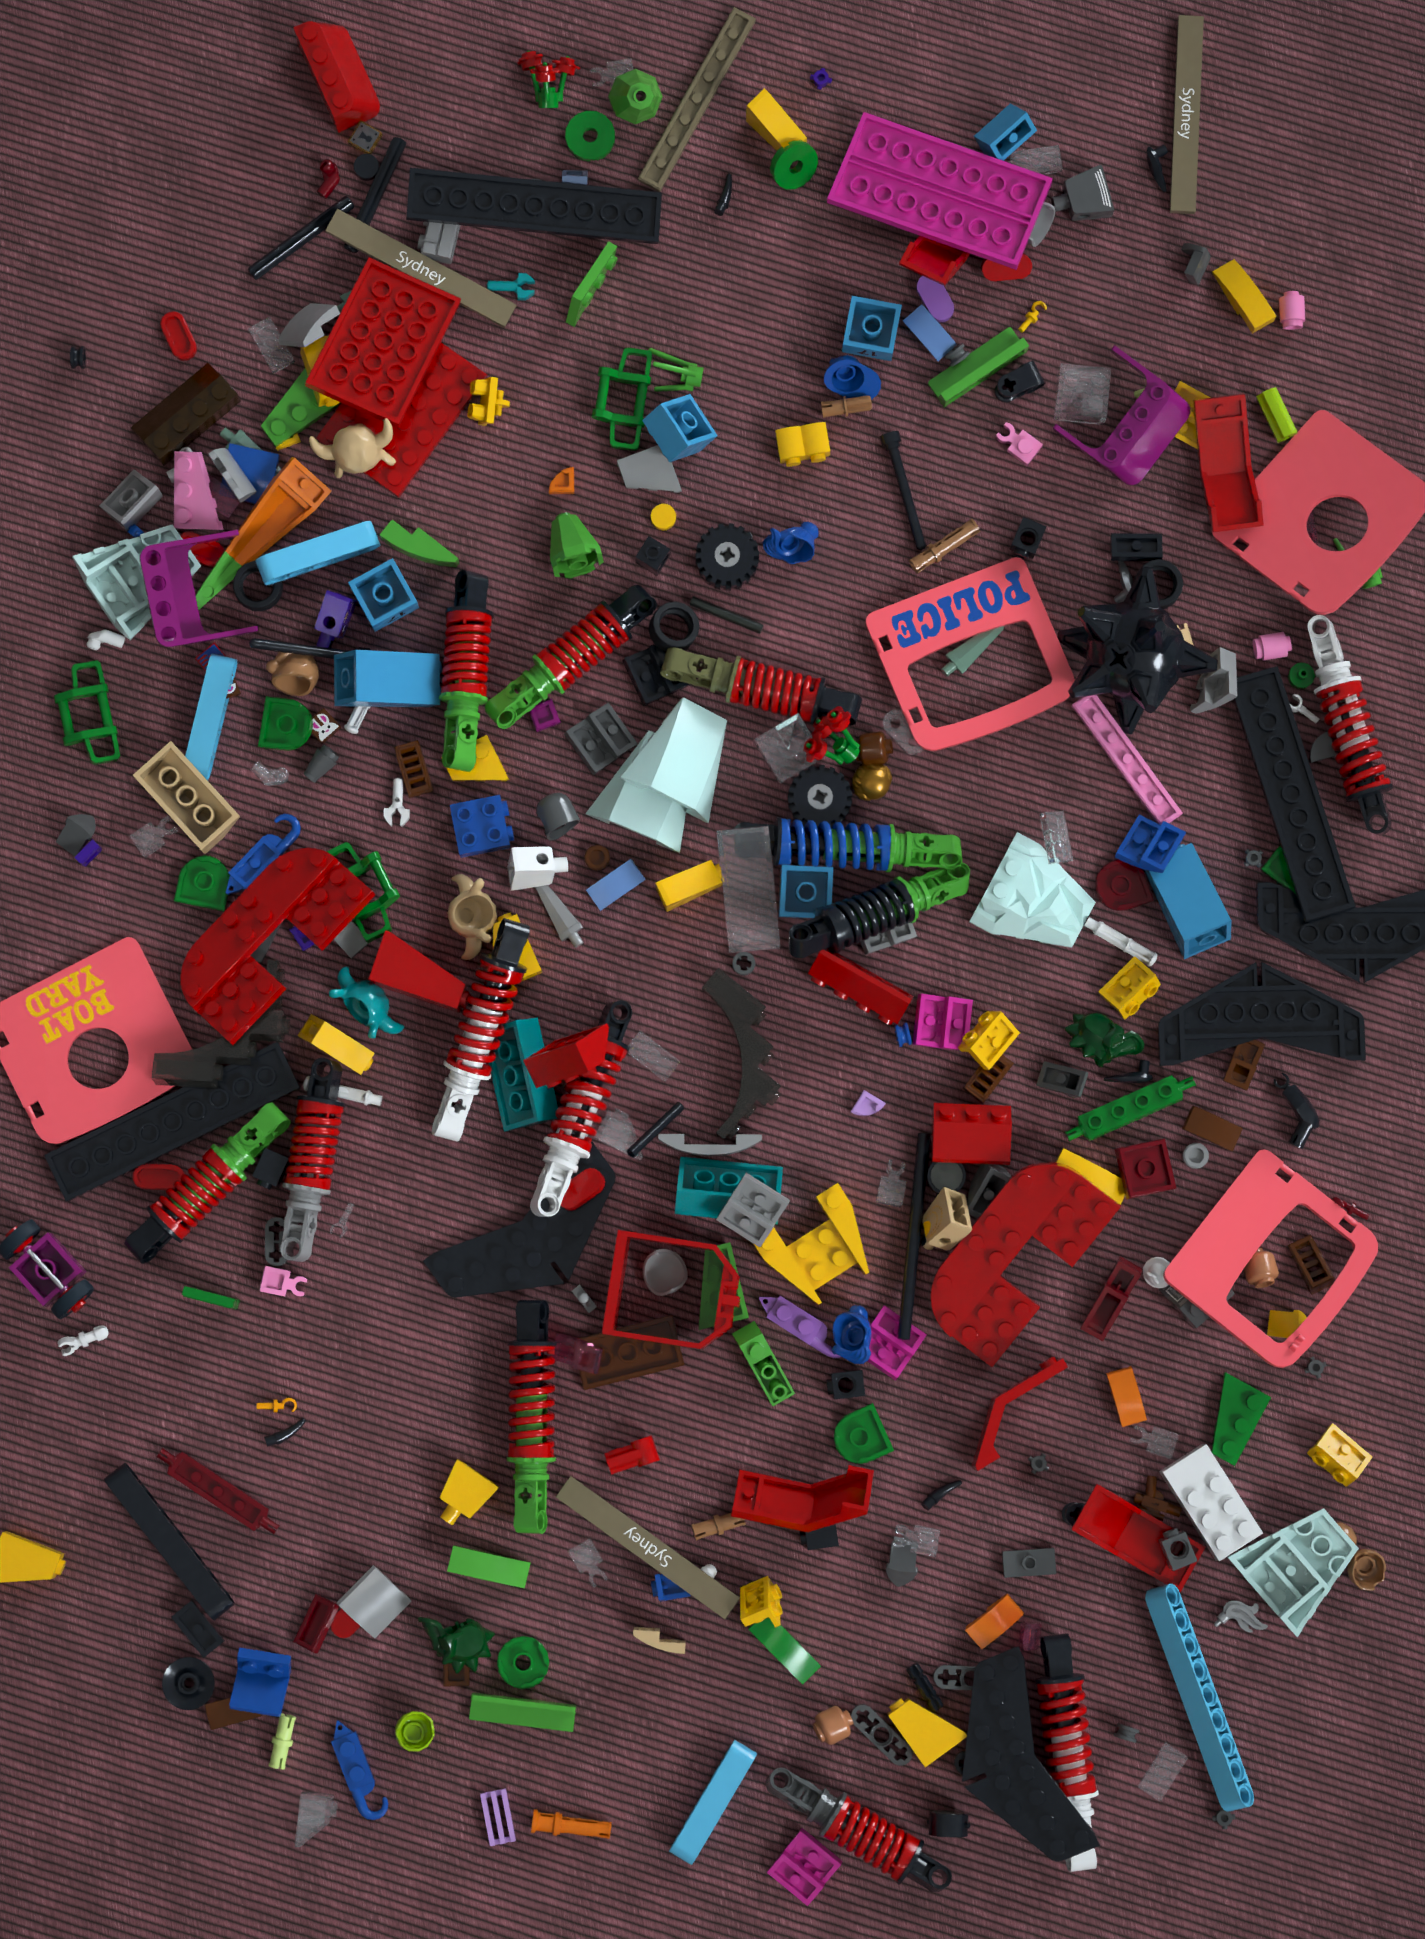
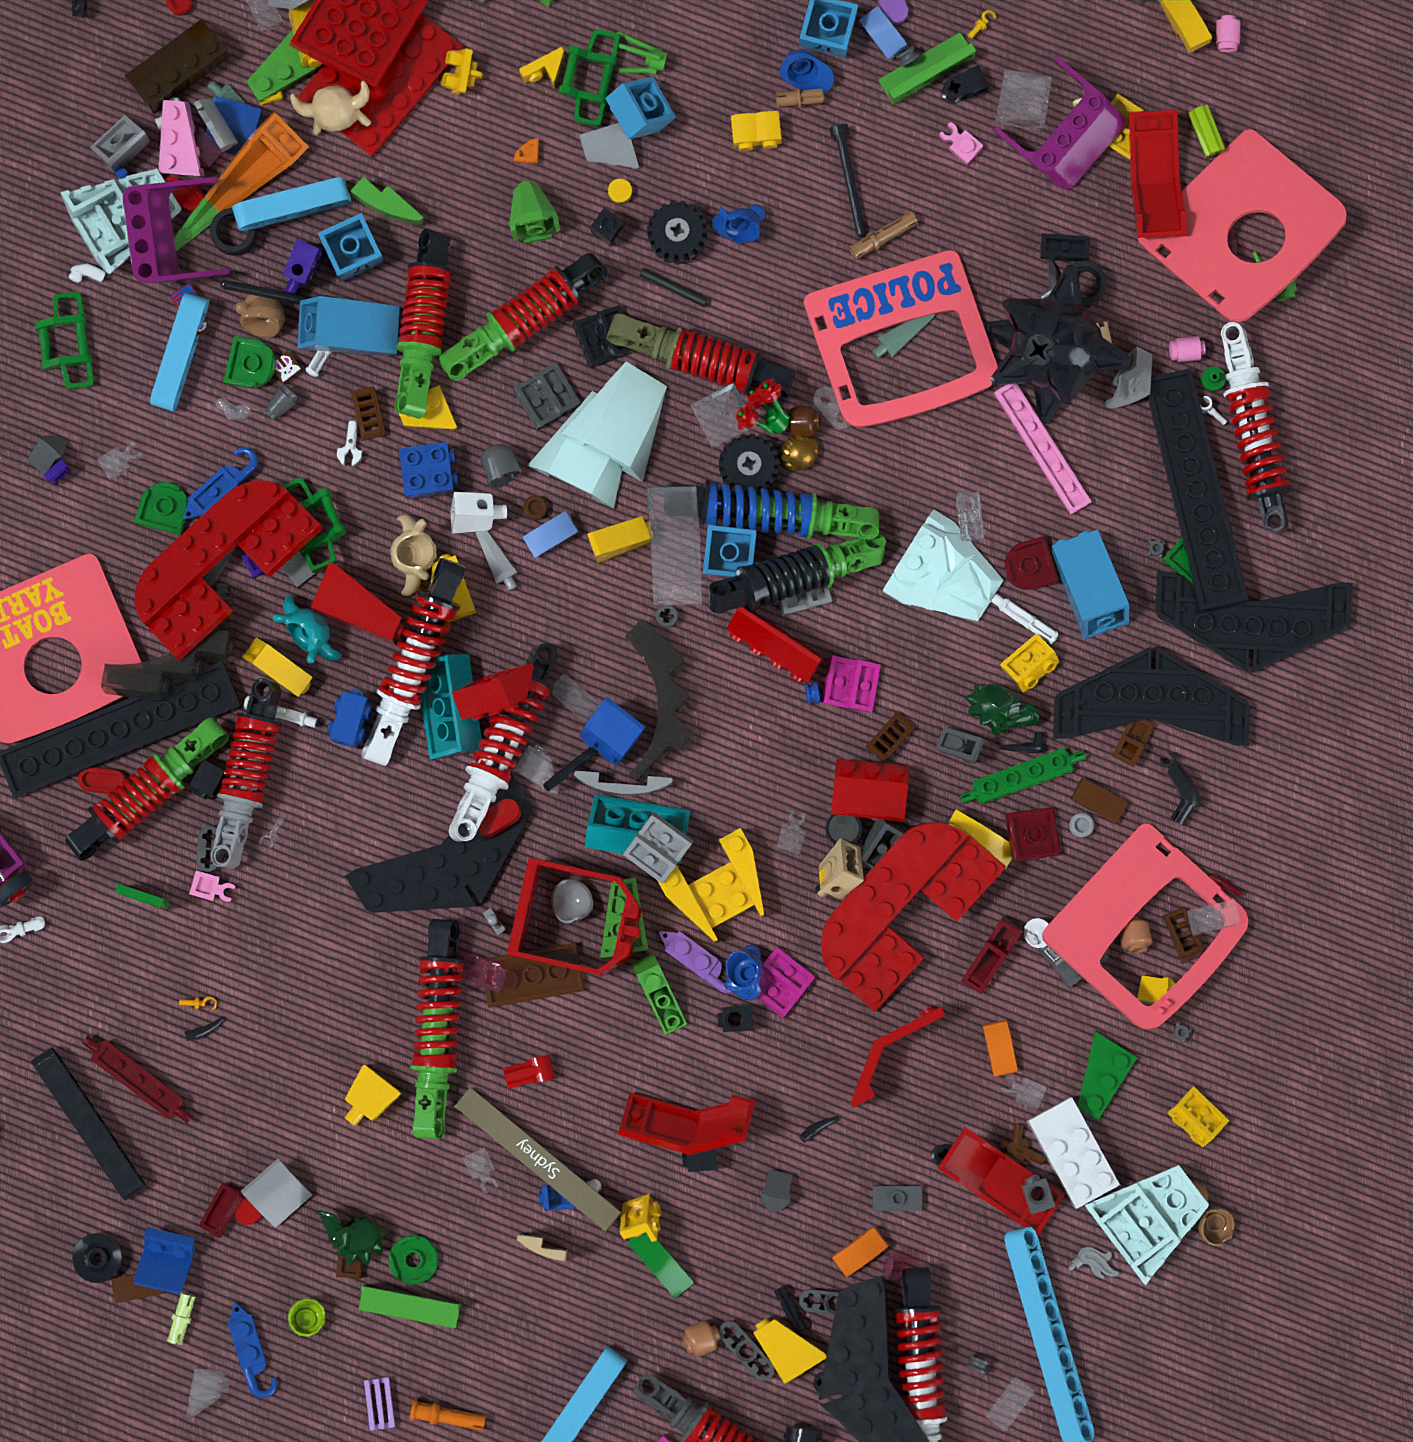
camera: 10 degrees right, 0 degrees up
(187, 797) = (153, 425): tan slope -> none
(198, 1628) = (109, 1207): black plate -> none
(419, 1087) = (352, 712): none -> blue brick
(488, 1566) = (386, 1167): bright green slope -> none
(544, 715) = (495, 371): magenta tile -> none
(579, 387) = (548, 64): none -> yellow slope
(685, 613) = (628, 279): black tyre -> none
(695, 1089) = (612, 731): none -> blue slope
(716, 1525) = (604, 1143): medium nougat pin -> none
(862, 1436) = (747, 1068): green tile -> none
(867, 1105) = (774, 757): lavender tile -> none
(913, 1237) = (809, 883): black piece -> none
(922, 1539) = (797, 1169): clear plate -> none
(989, 1038) = (893, 702): yellow bracket -> none
(1030, 528) = (964, 223): black brick -> none
(1038, 1463) = (912, 1105): dark grey piece -> none
(1150, 844) = (1058, 528): blue slope -> none
(1321, 749) = (1227, 449): dark grey tile -> none
(1342, 1244) = (1214, 917): none -> clear plate

